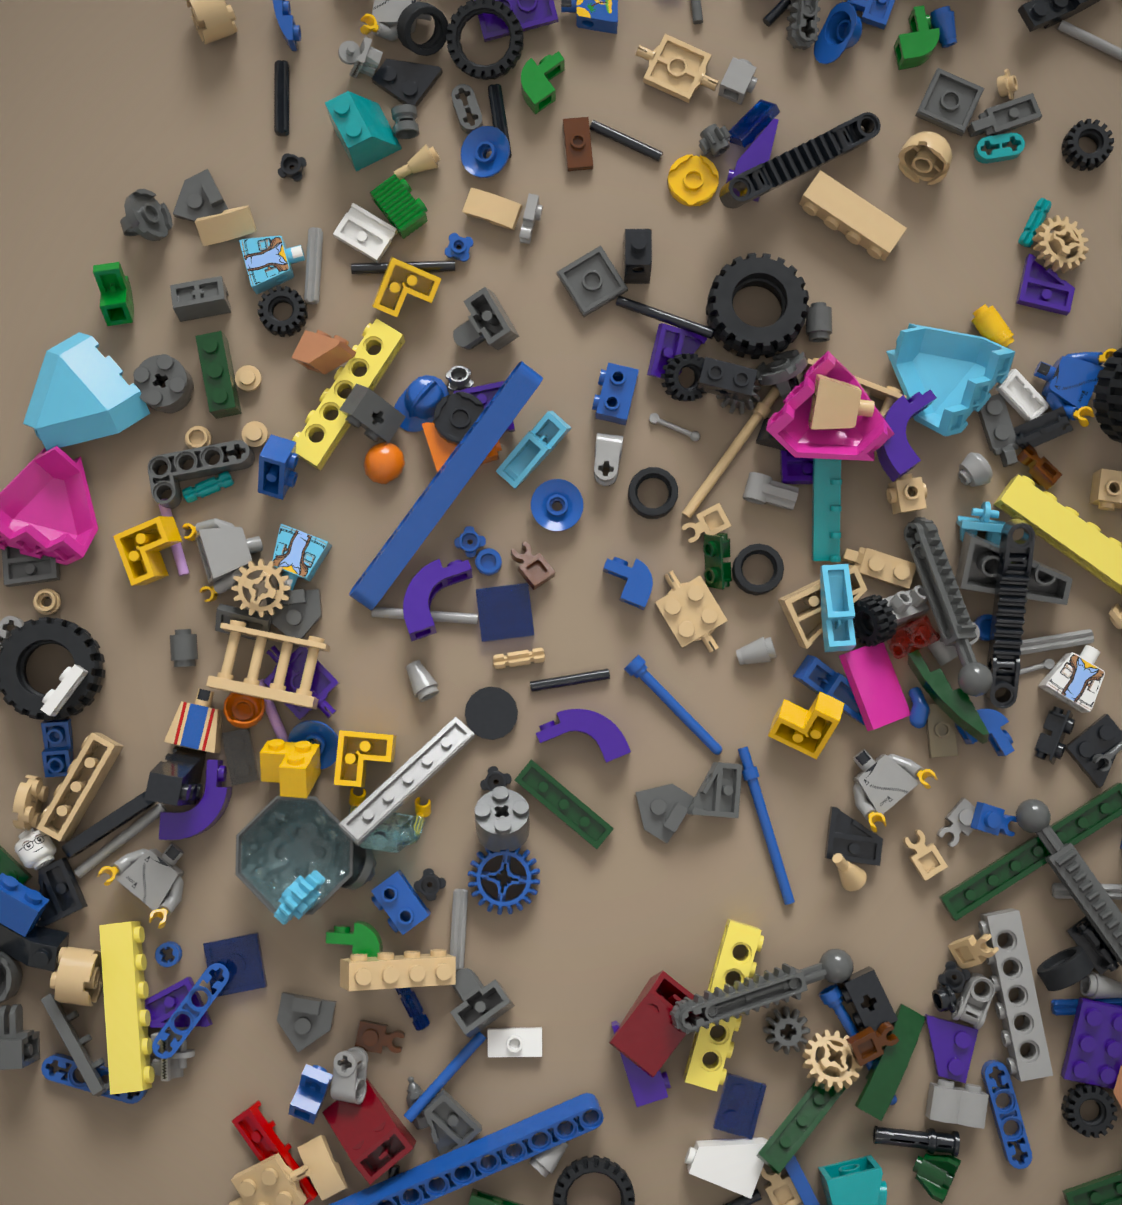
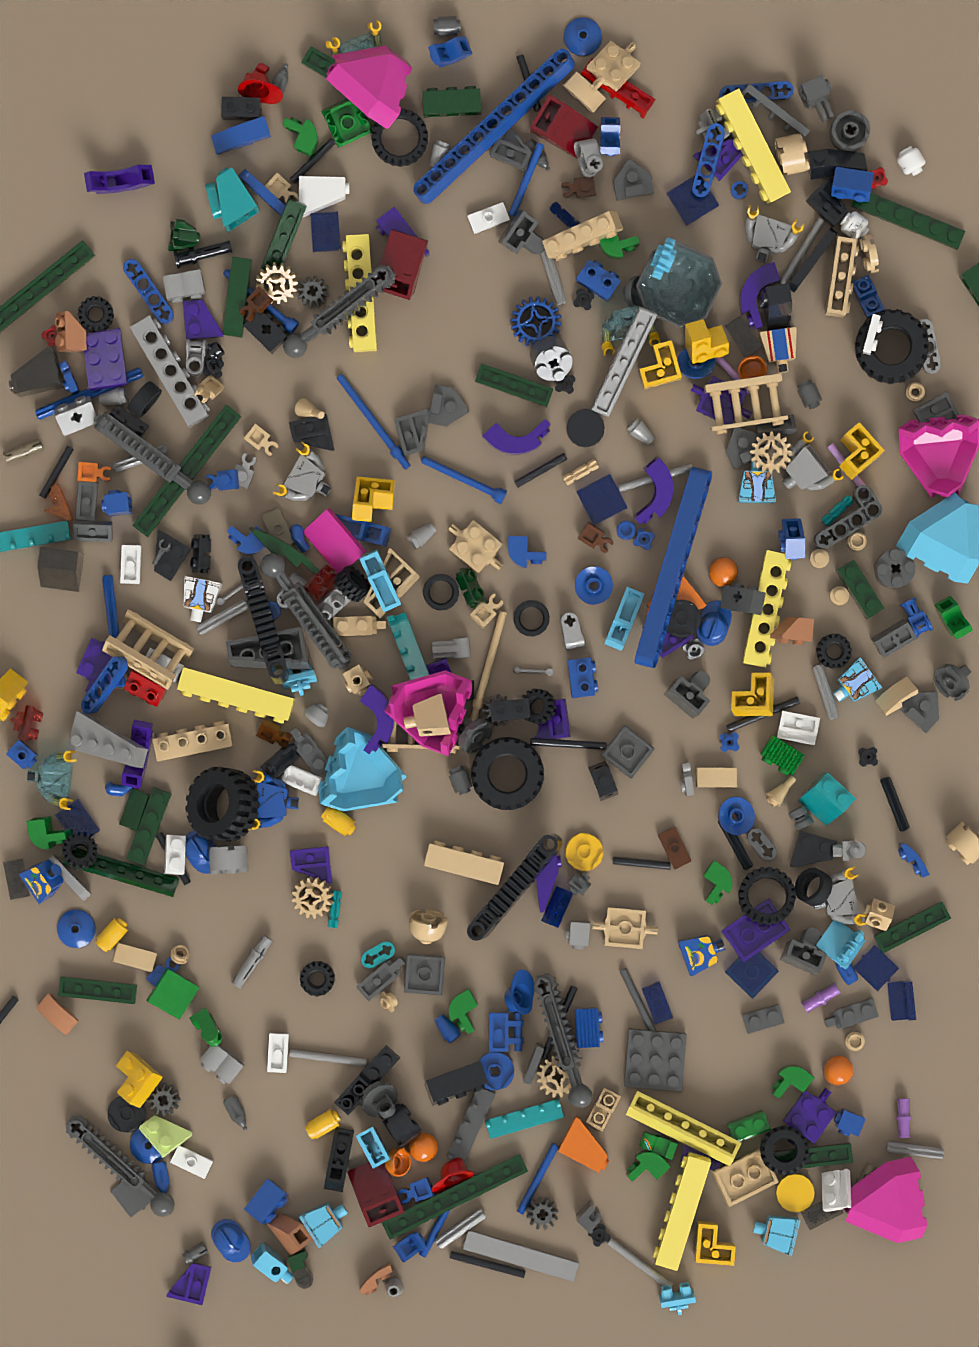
camera: 160 degrees right, 5 degrees up
(161, 314) = (917, 618): none -> blue connector

